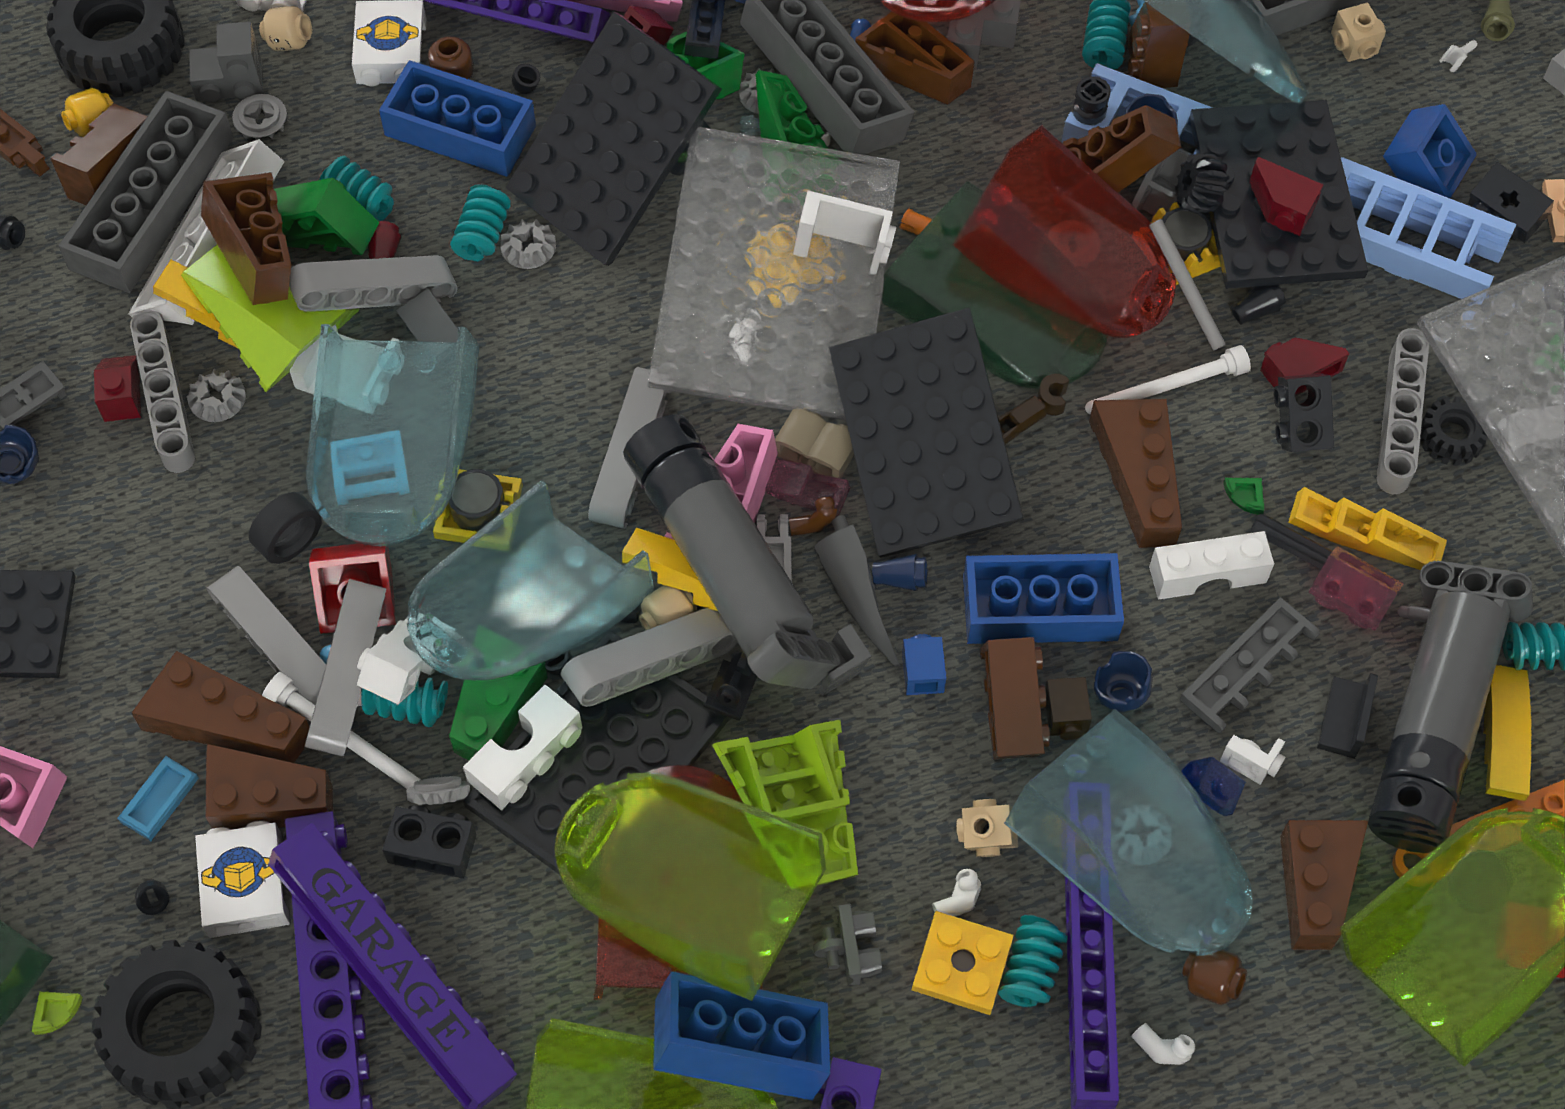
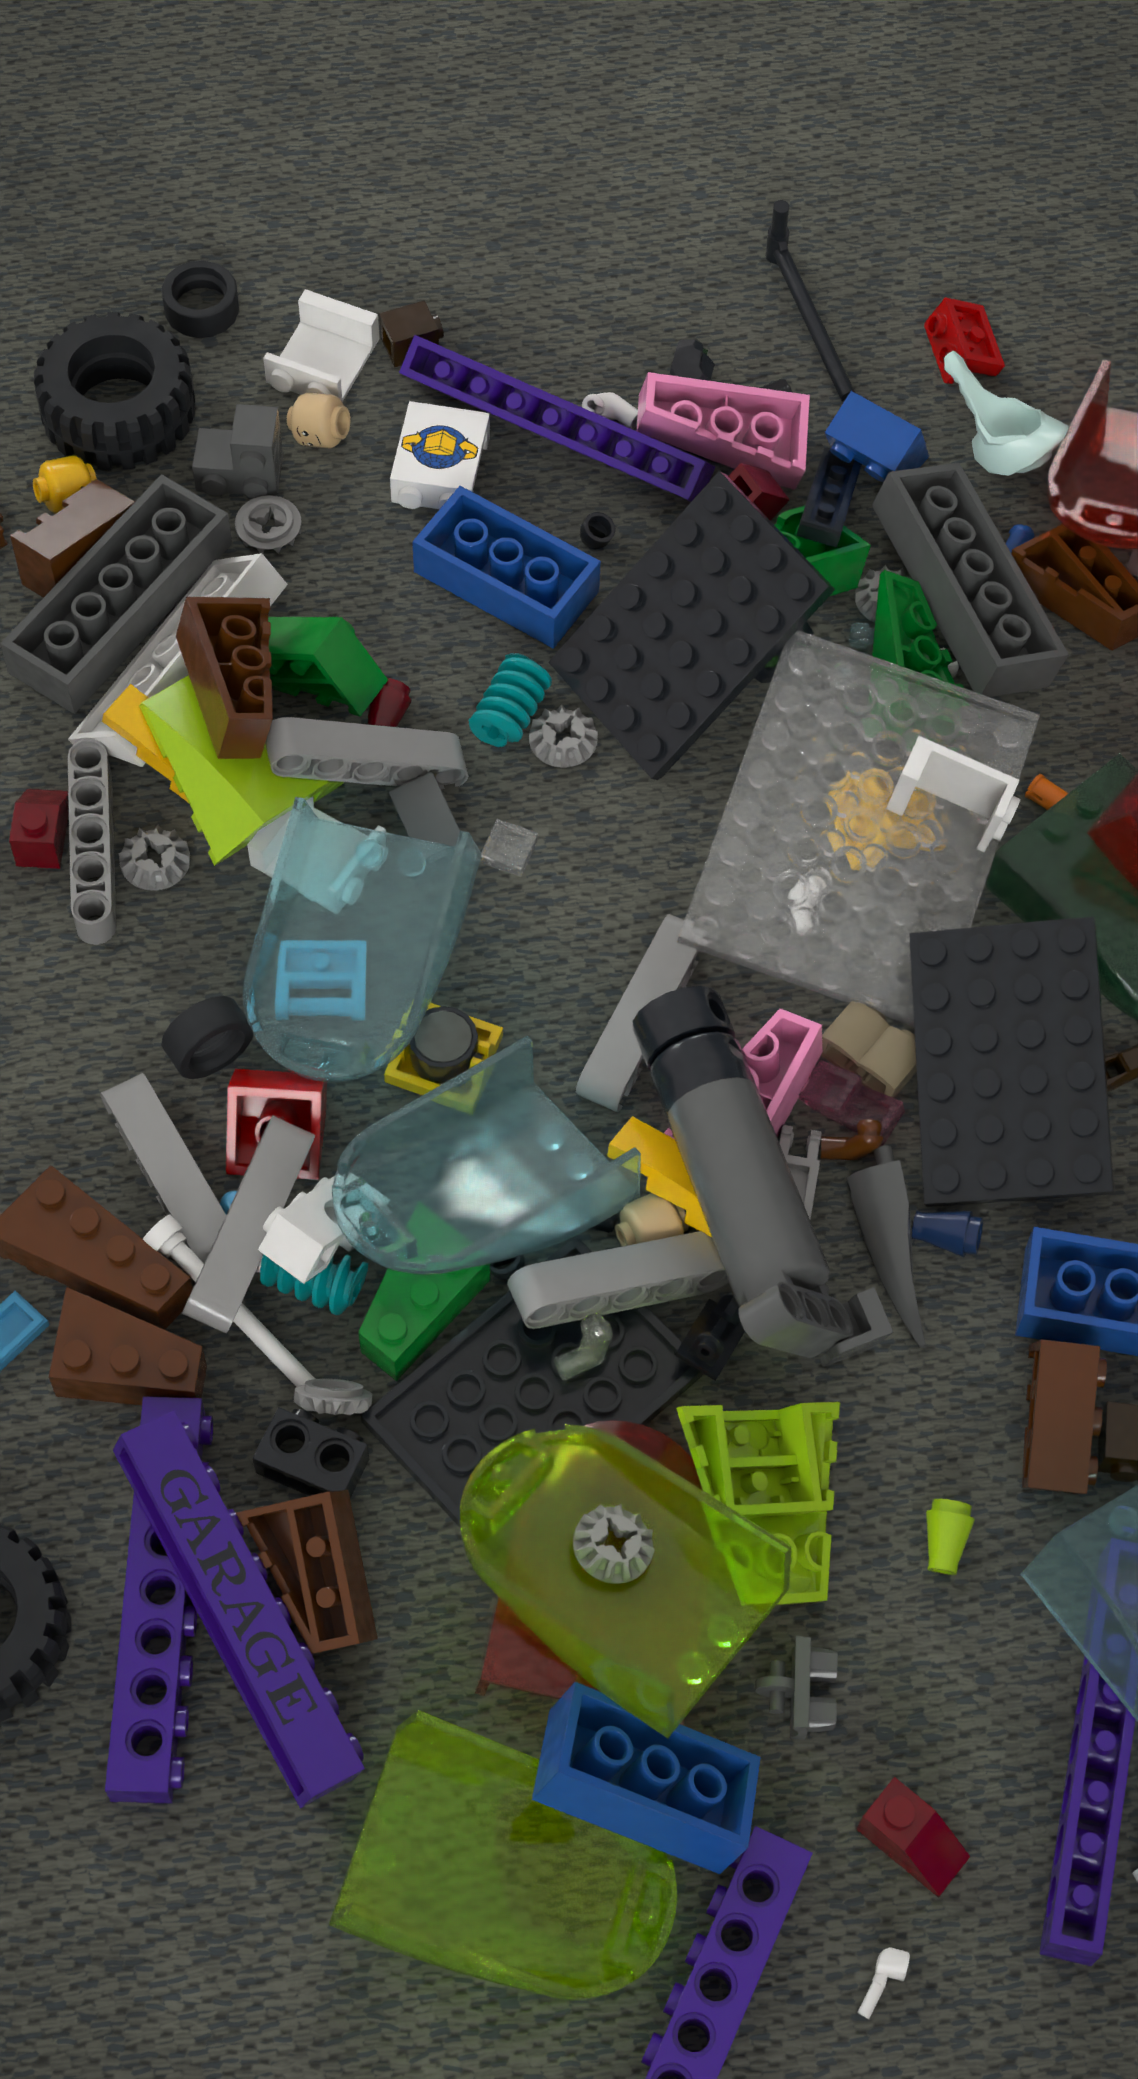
camera: 10 degrees right, 0 degrees up
(237, 883) = (72, 1463): white panel -> none
(362, 186) = (377, 635): teal piece -> none
(449, 924) = (317, 1565): none -> reddish brown wedge
(451, 56) = (512, 489): reddish brown head -> none
(500, 337) = (509, 847): none -> clear plate
(505, 773) = (418, 1392): white arch -> none
(637, 715) = (592, 1348): none -> clear arm
(677, 874) = (604, 1561): none -> light grey gear
(923, 665) = (956, 1352): blue brick -> none
(942, 805) = (947, 1534): none -> lime cone
(958, 1041) = (914, 1837): none -> dark red slope
(962, 962) = (937, 1739): yellow piece -> none
(963, 896) = (952, 1656): white arm -> none
(997, 837) = (1011, 1587): tan brick -> none
(1031, 962) = (1024, 1755): teal piece -> none

